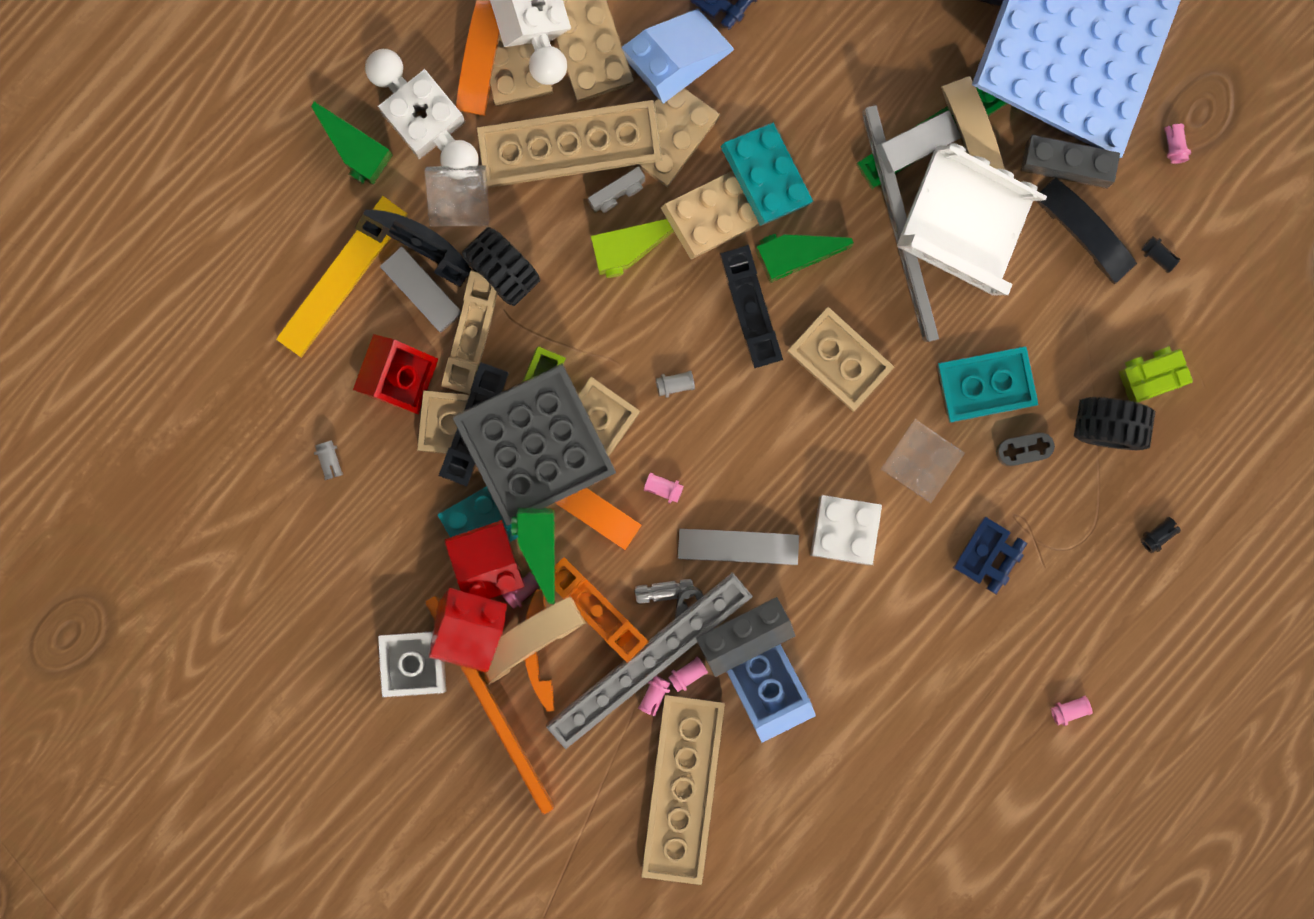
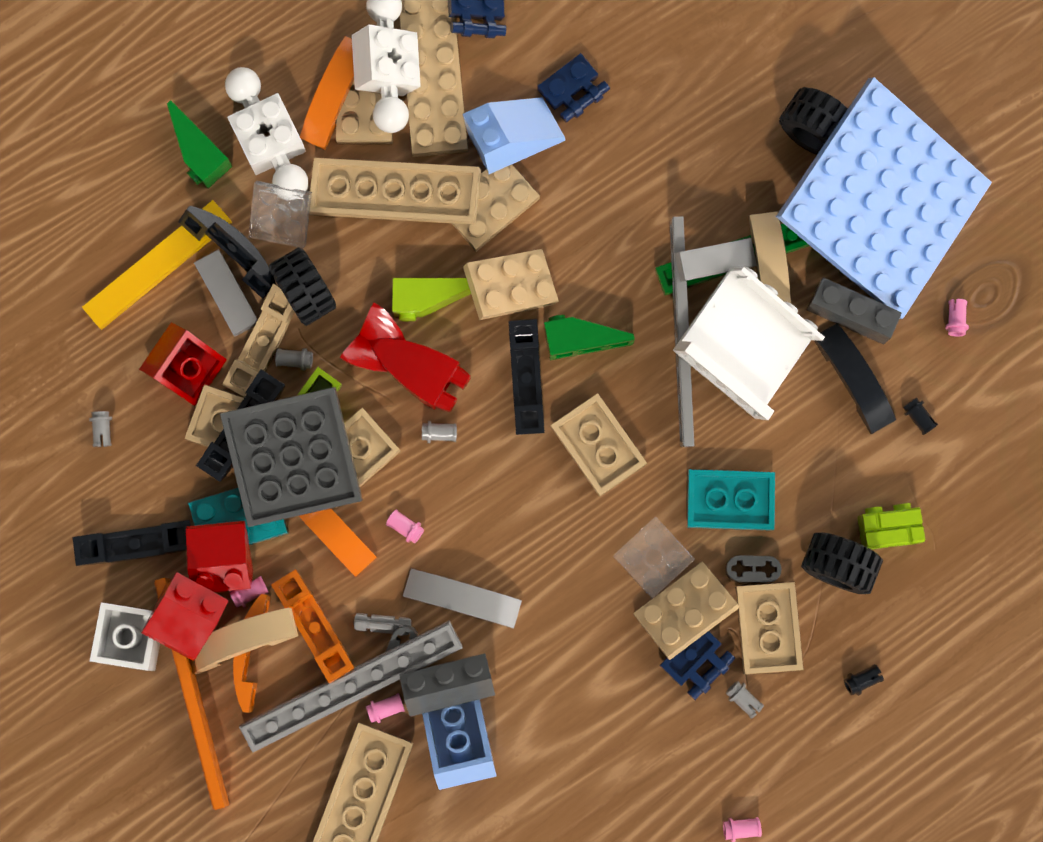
camera: 15 degrees right, 5 degrees down
(391, 569) = (130, 544): none -> black slope
(508, 342) = (294, 358): none -> light grey pin
(536, 541) = (271, 550): green slope -> none
(627, 184) = (436, 240): light grey plate -> none
(637, 323) = (415, 366): none -> red hips
(654, 695) = (348, 720): bright pink pin -> none
(766, 173) = (569, 259): teal plate -> none
(846, 530) = (566, 605): white brick -> none
(967, 507) = (686, 610): none -> tan plate
(1039, 578) = (742, 697): none -> light grey pin
(1054, 505) = (769, 628): none -> tan plate

